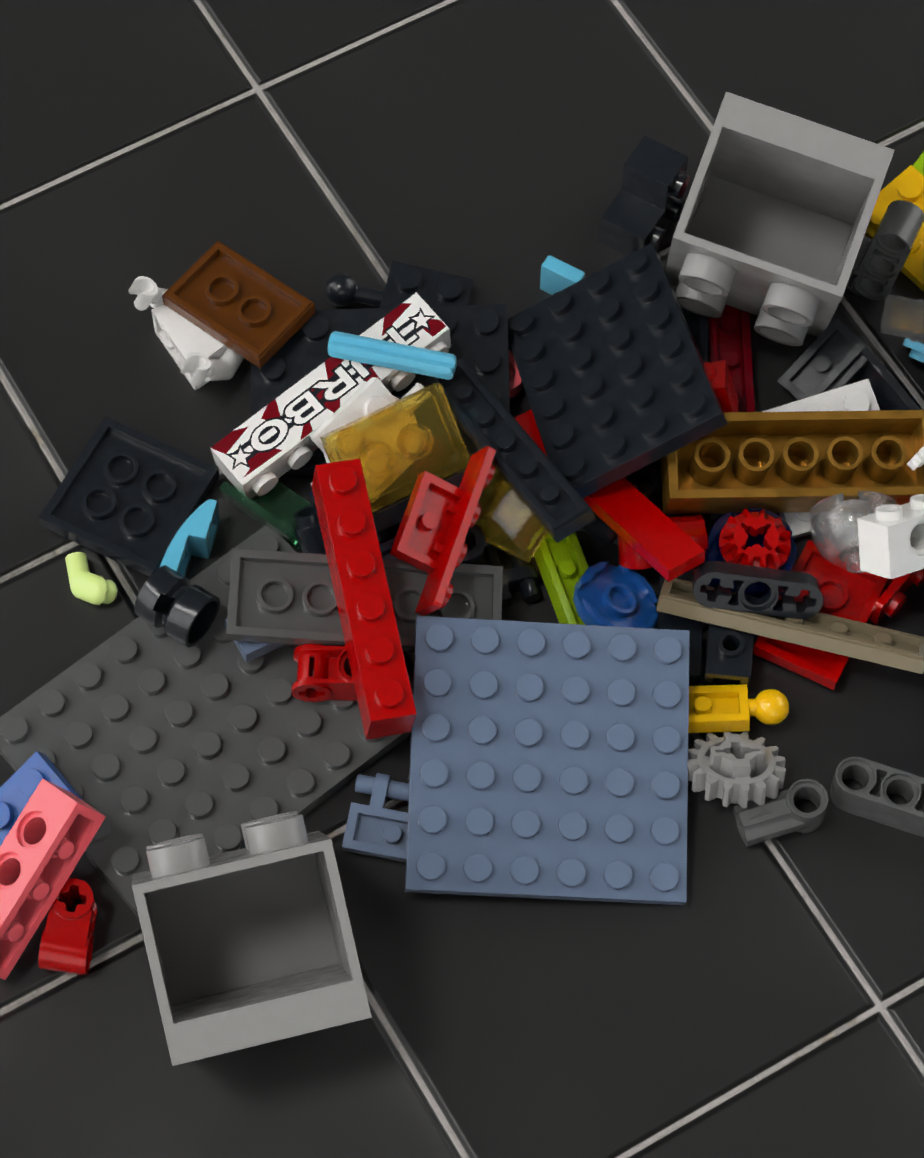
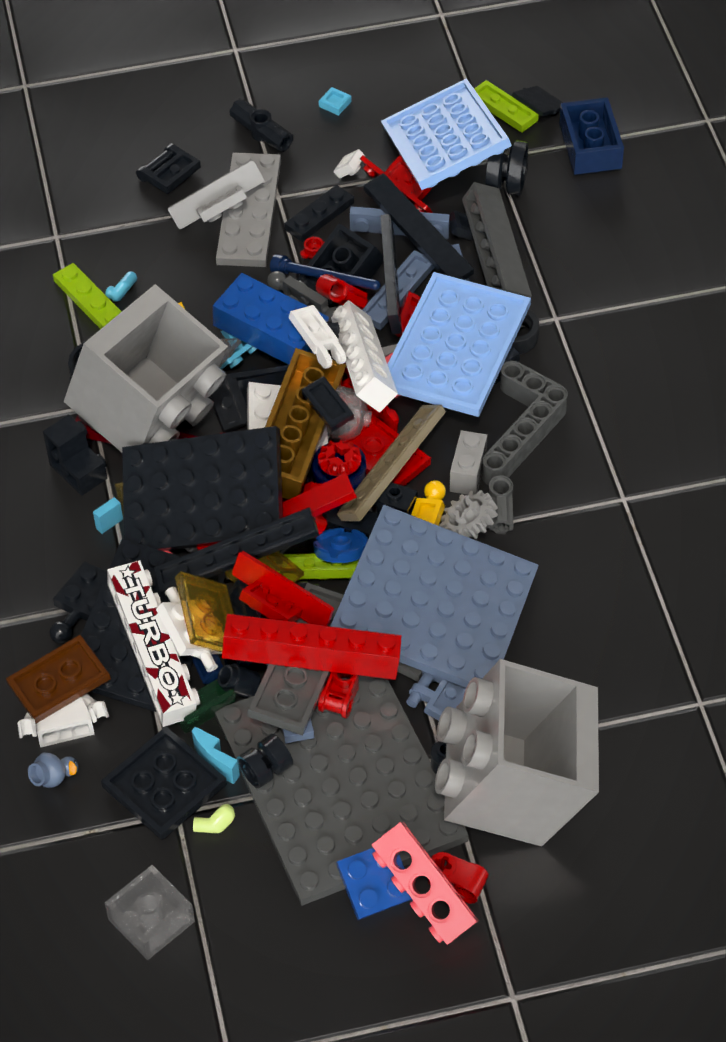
camera: 70 degrees left, 10 degrees down
(102, 352) = (50, 770): none -> sand blue animal
(392, 355) = (147, 592): medium azure axle -> none
(769, 604) = (378, 461): black beam -> none
(832, 736) = (468, 462): none -> light grey brick
(834, 487) = (327, 404): none -> black tile

